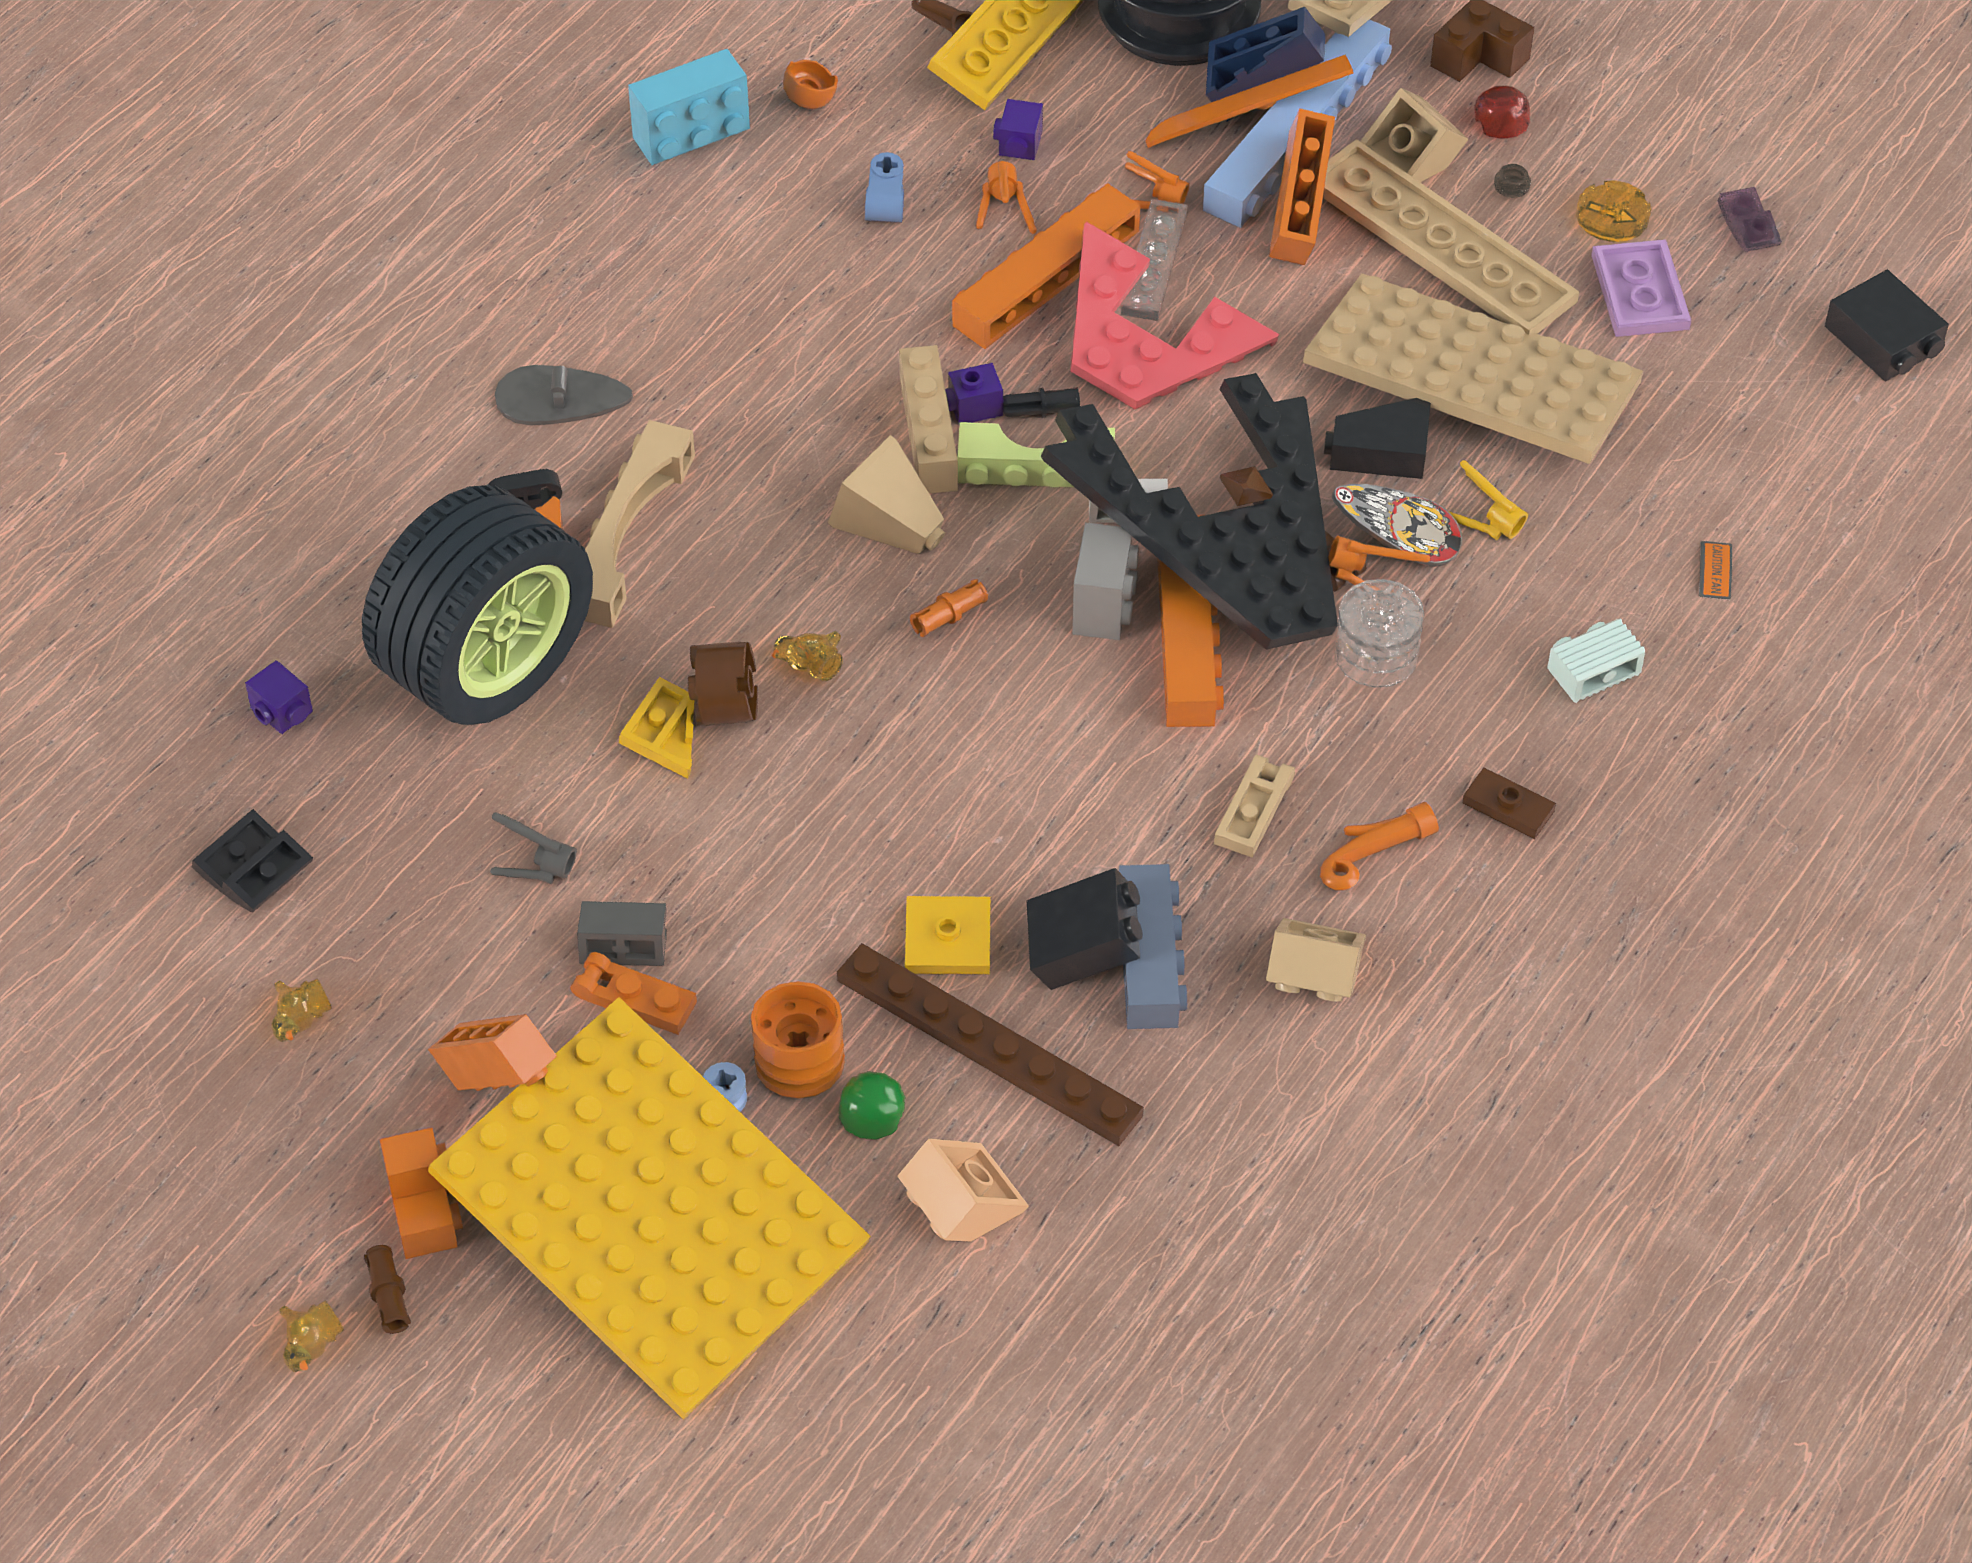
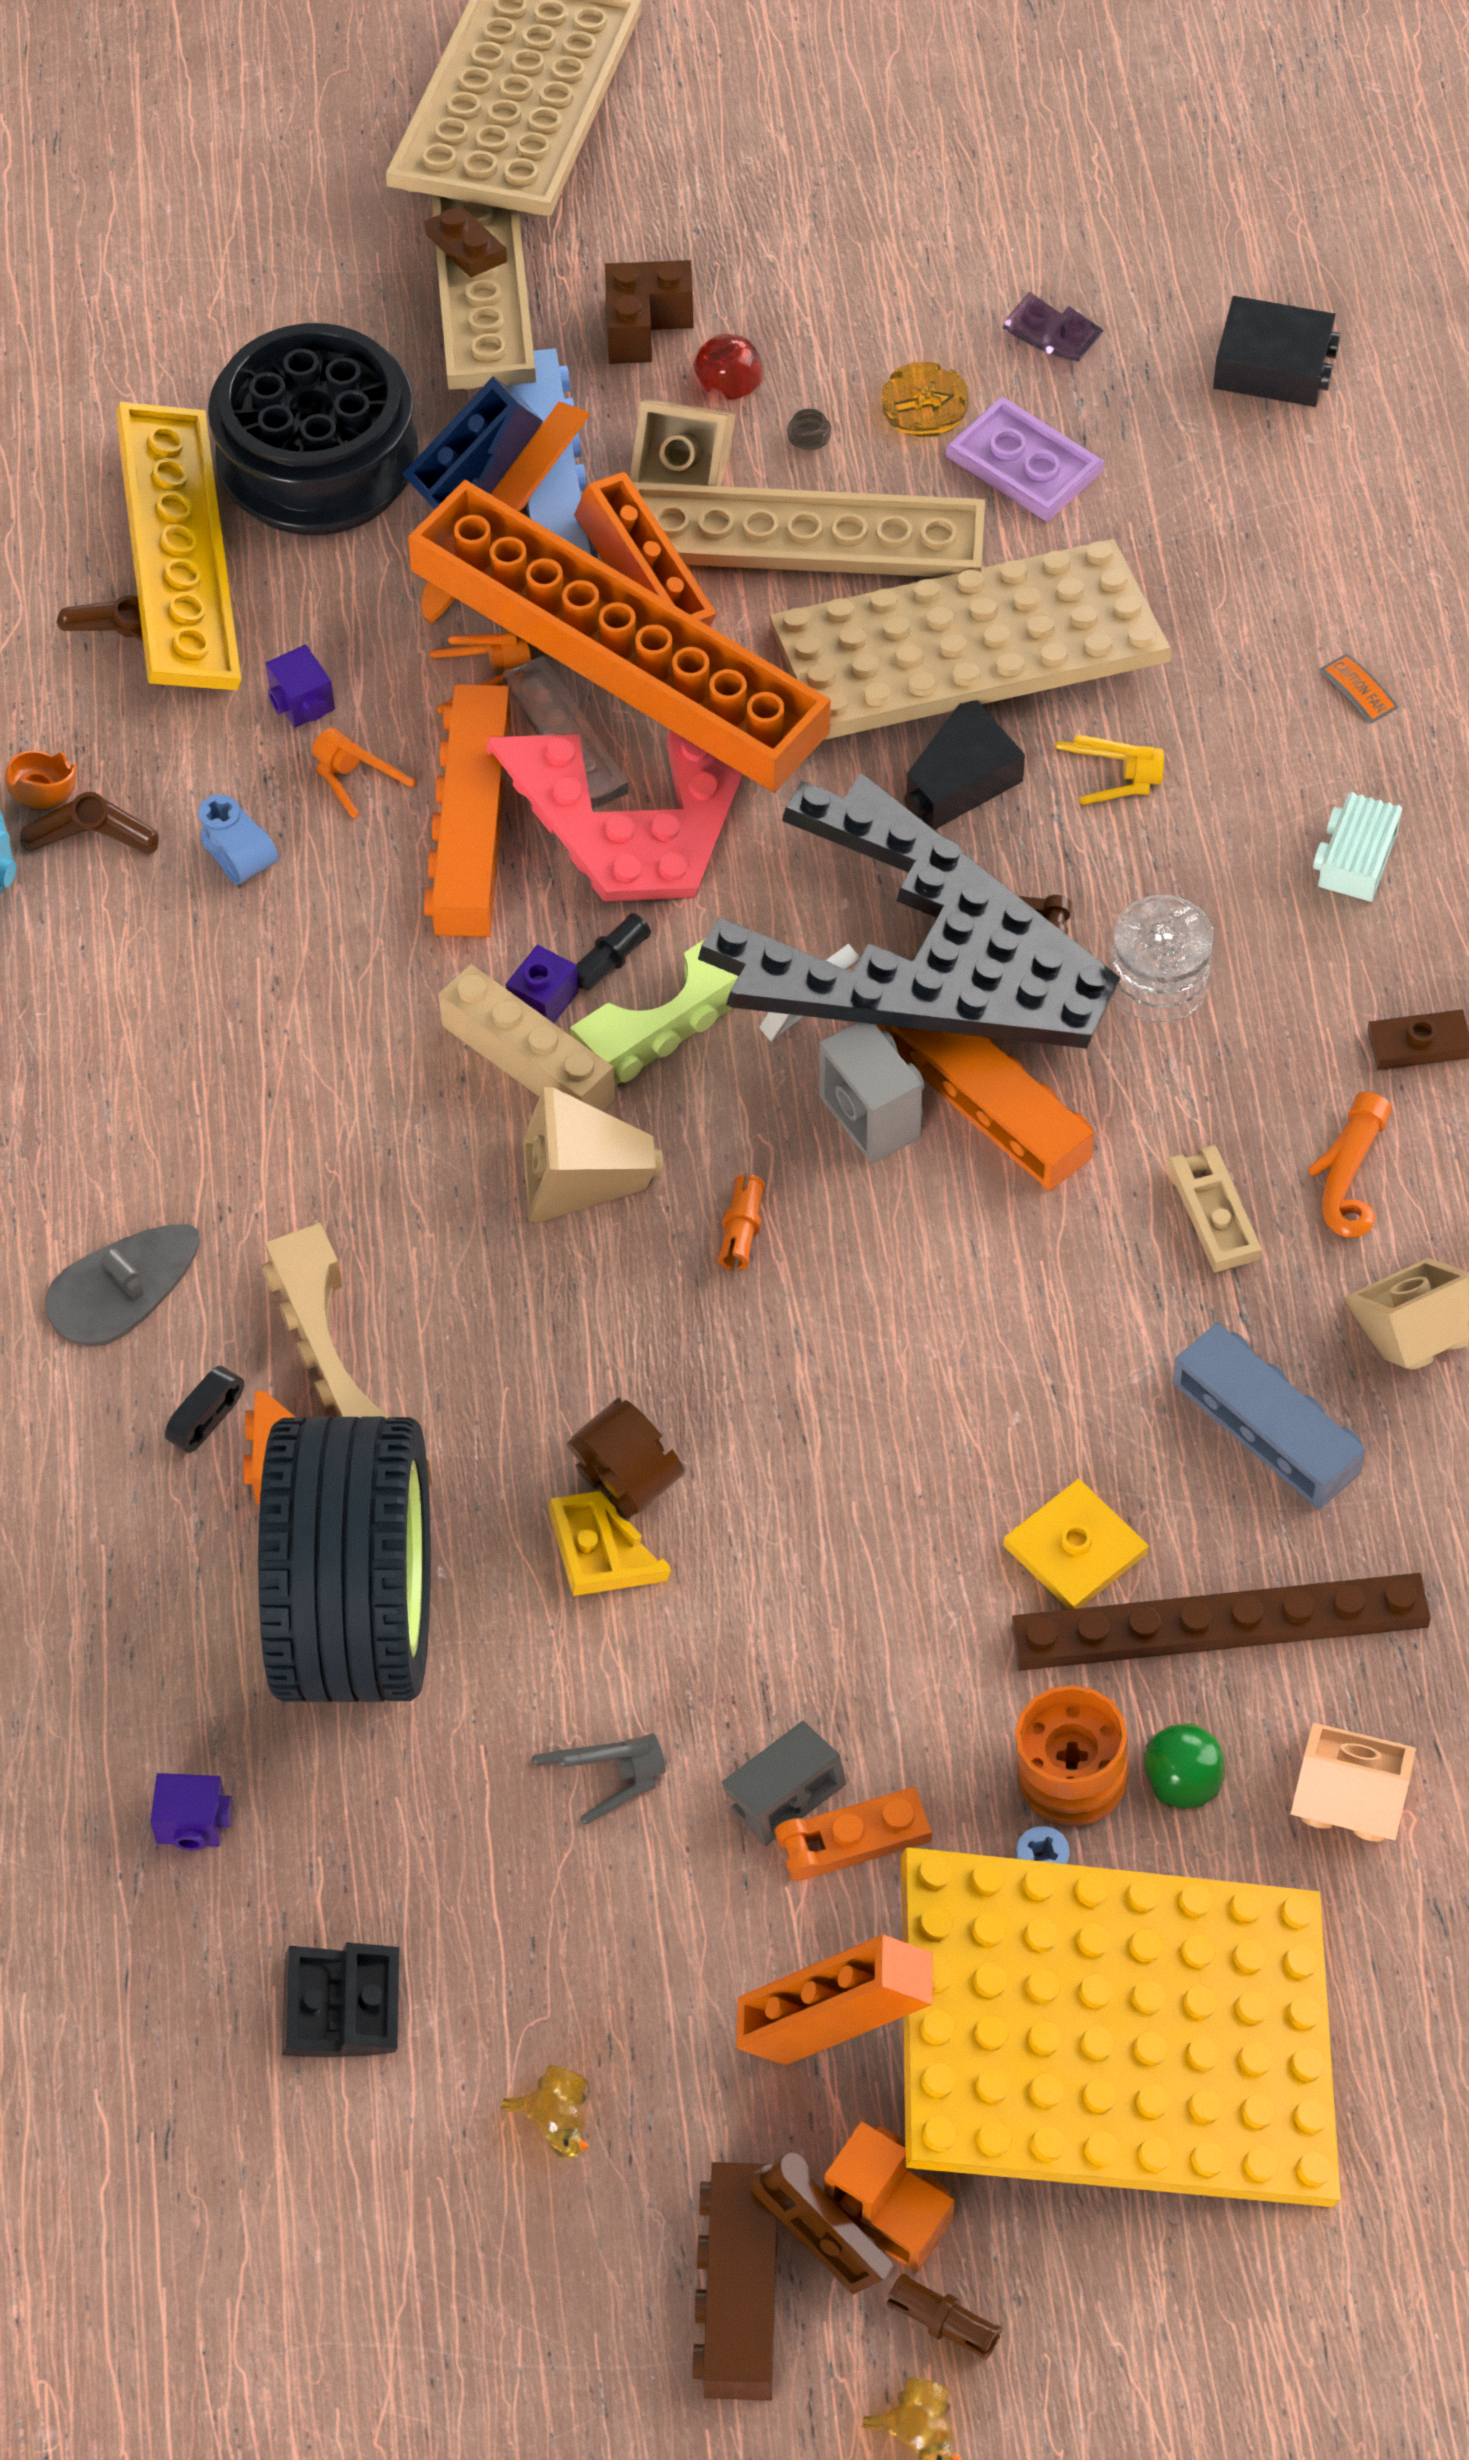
camera: 40 degrees left, 5 degrees up
(295, 1177) = (740, 2287): none -> reddish brown brick
(363, 1174) = (820, 2223): none -> reddish brown plate
(811, 653) = (662, 1366): clear yellow animal -> none
(814, 120) = (89, 813): none -> reddish brown piece
(1083, 928) = (1211, 1442): black brick -> none
(1231, 215) = (620, 635): none -> orange brick
(1246, 486) = (918, 899): reddish brown slope -> none
(1351, 555) = (1063, 898): orange plant -> none
(1401, 520) = (1064, 835): shield -> none

